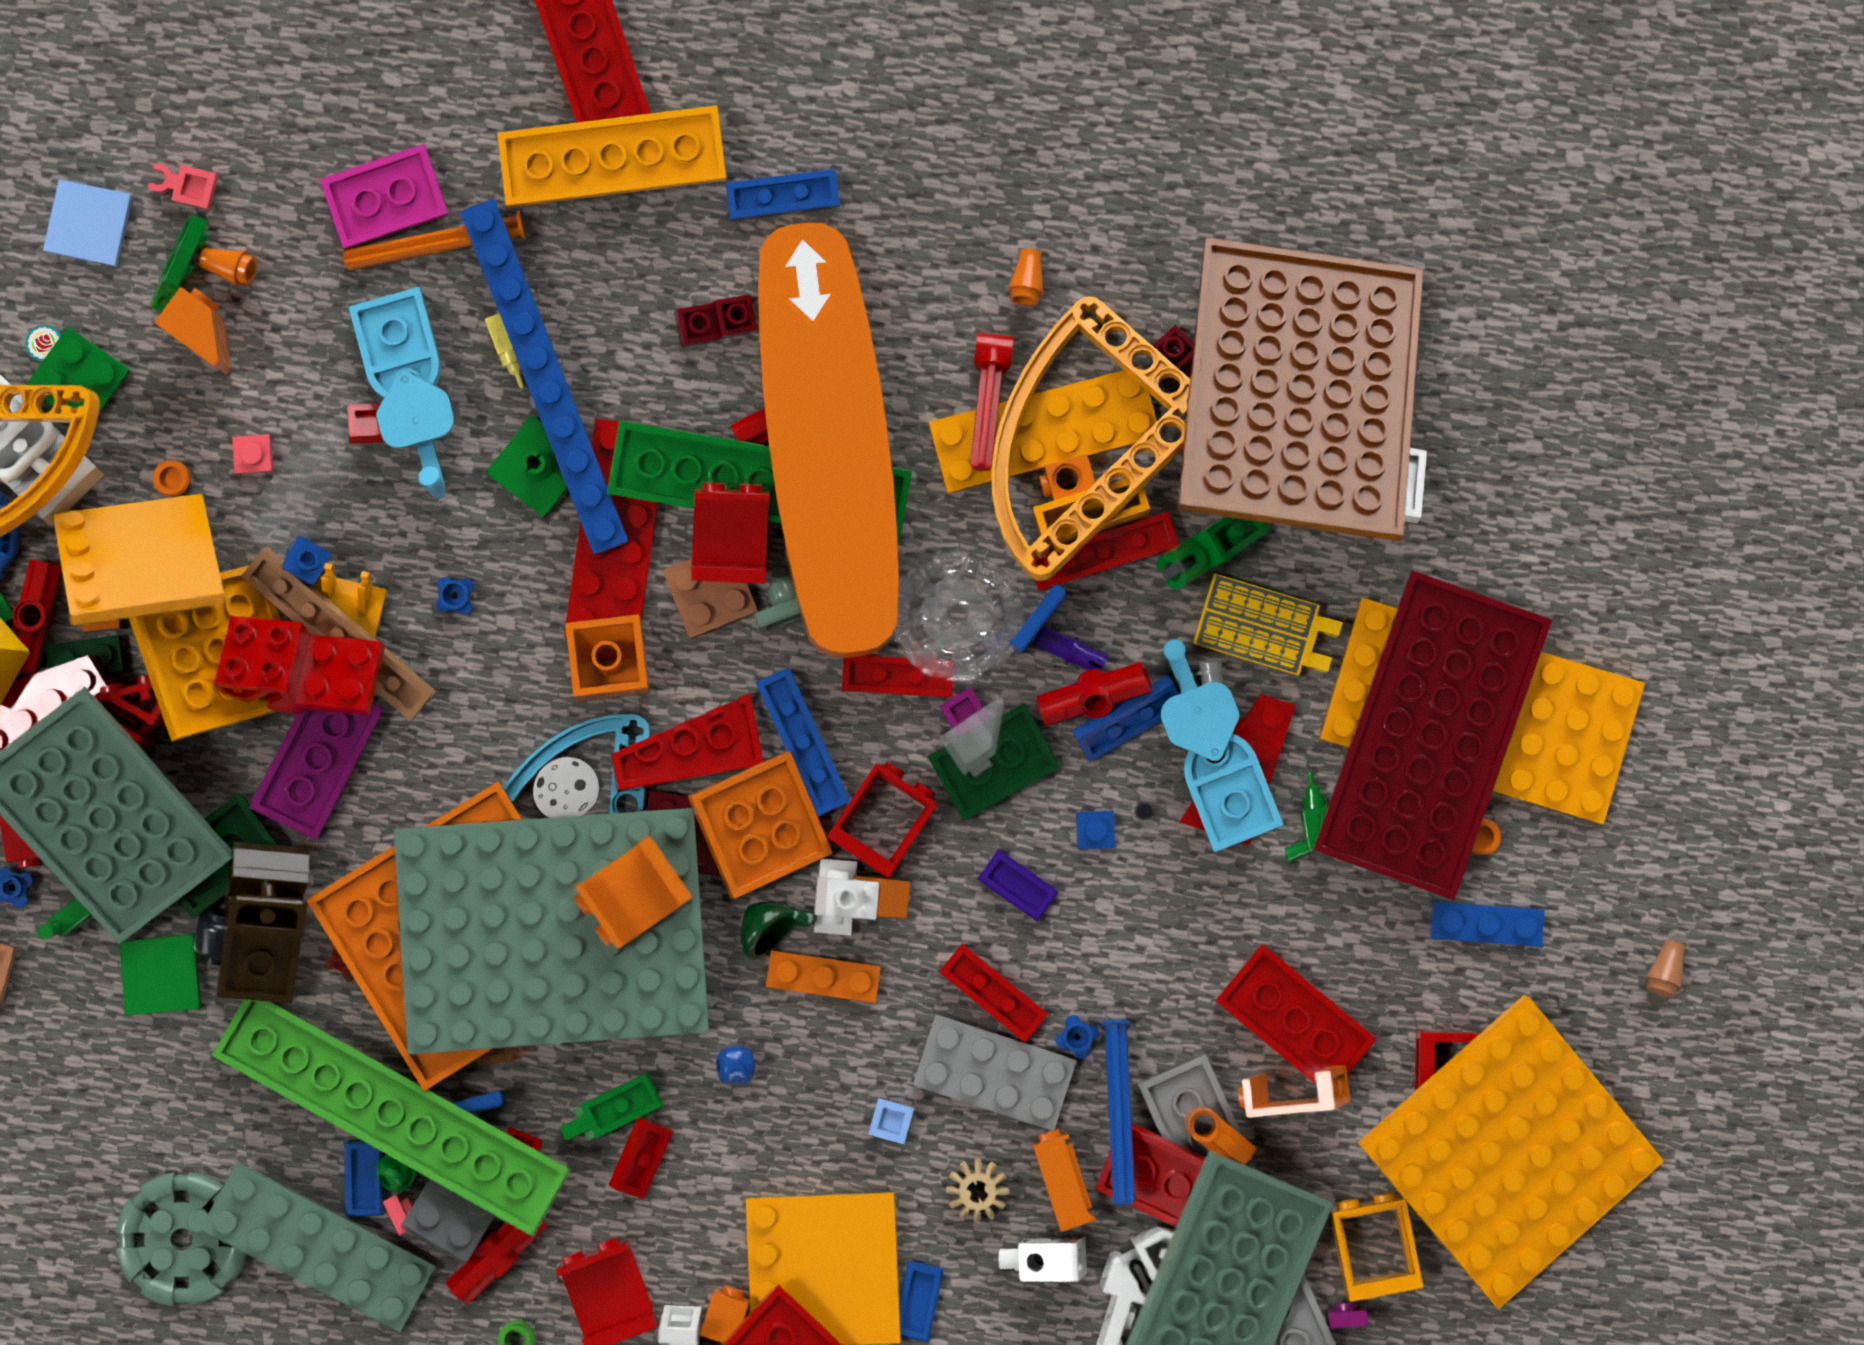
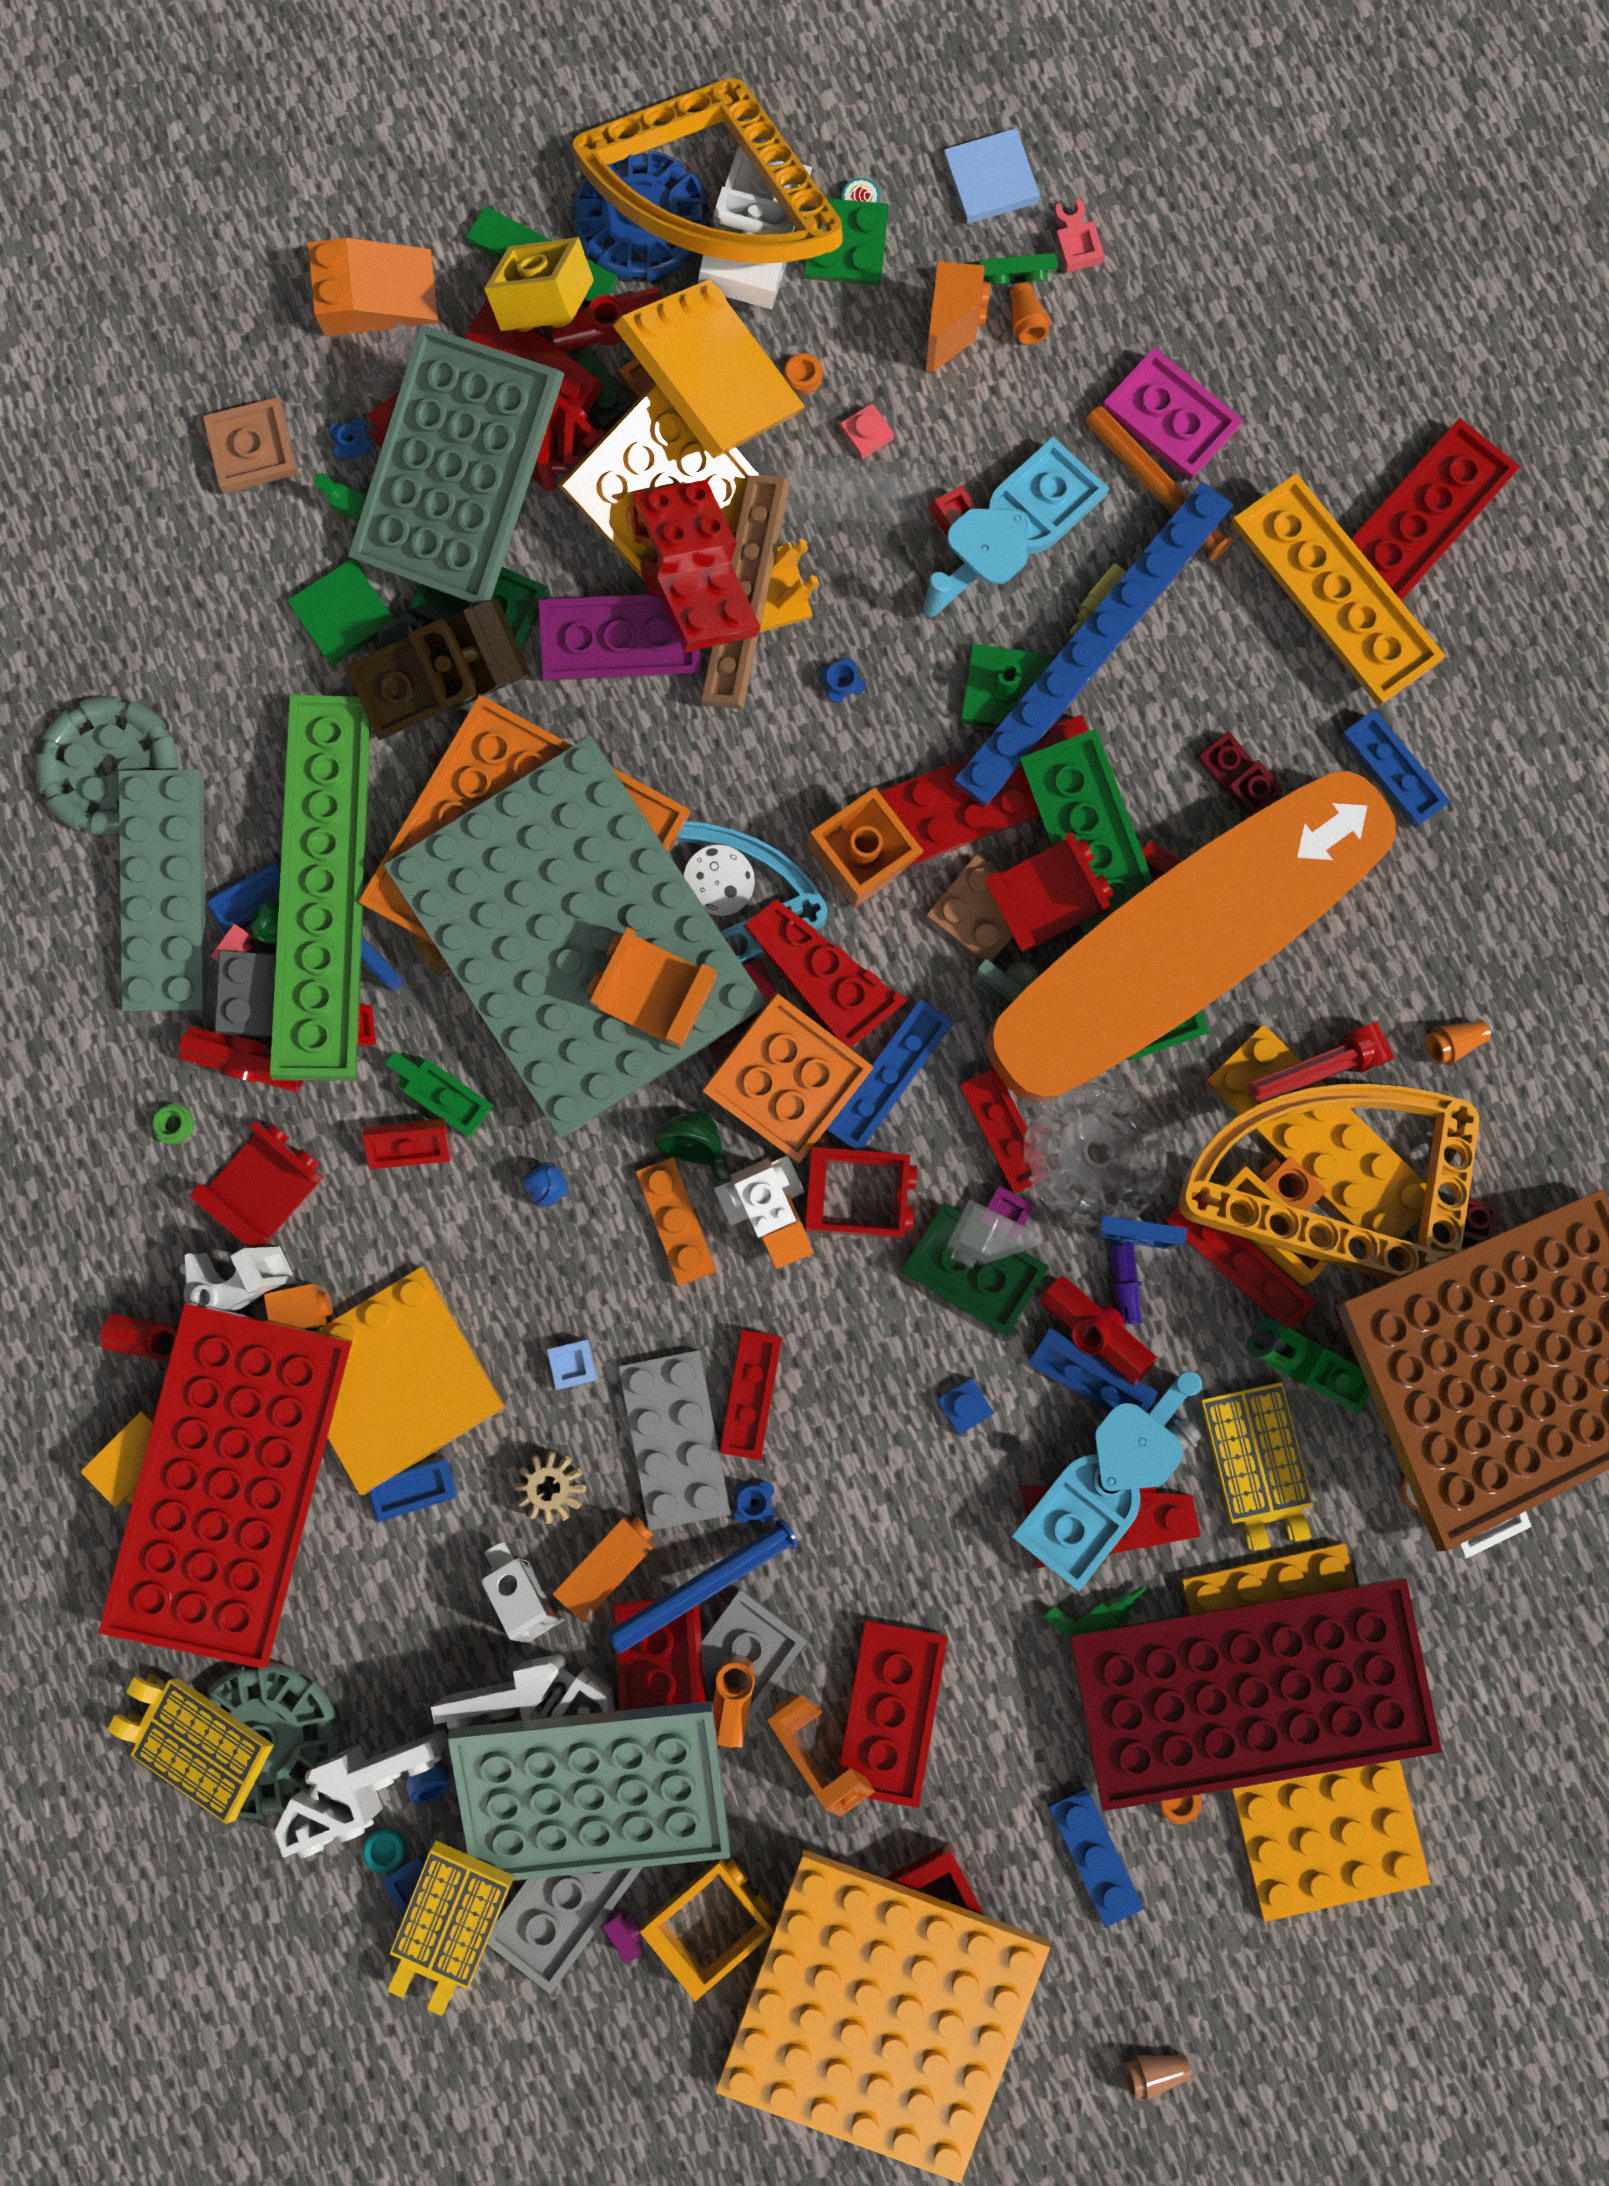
camera: 70 degrees right, 5 degrees down
(305, 560) = (796, 521): blue bracket -> none
(1017, 885) = (868, 1360): dark purple tile -> none

